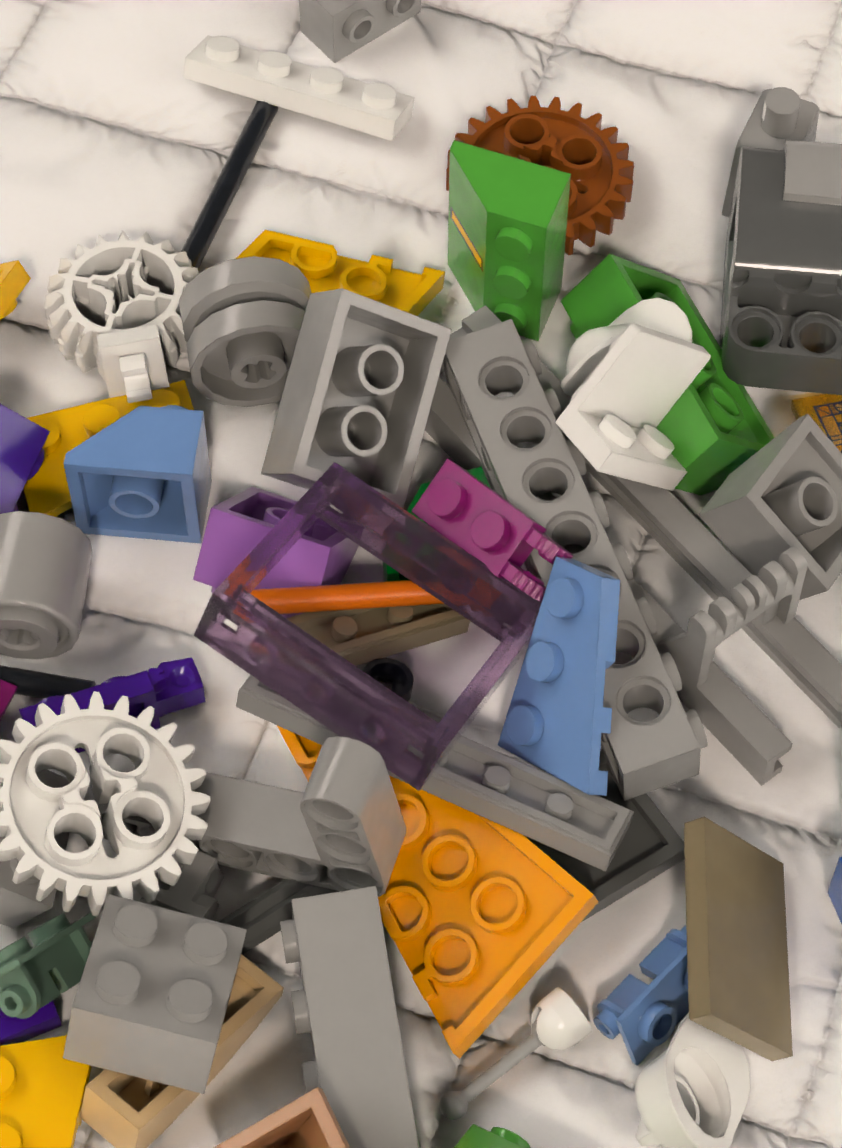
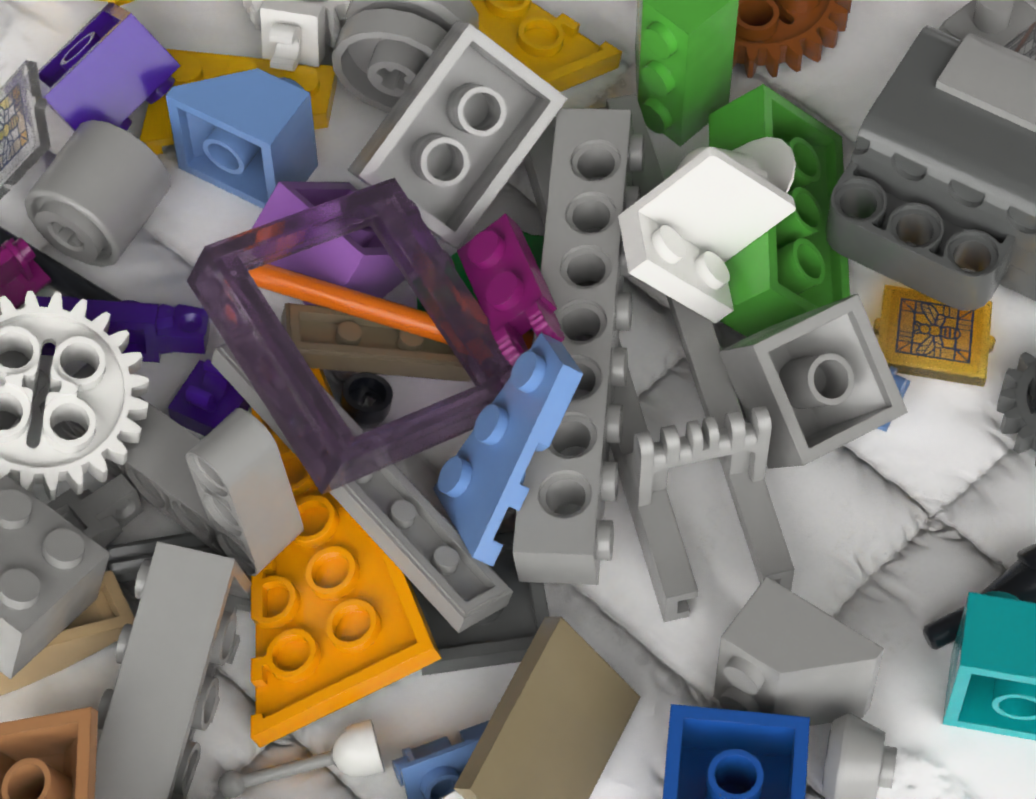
camera: 25 degrees right, 0 degrees up
(236, 744) = (205, 399): none -> dark purple tile

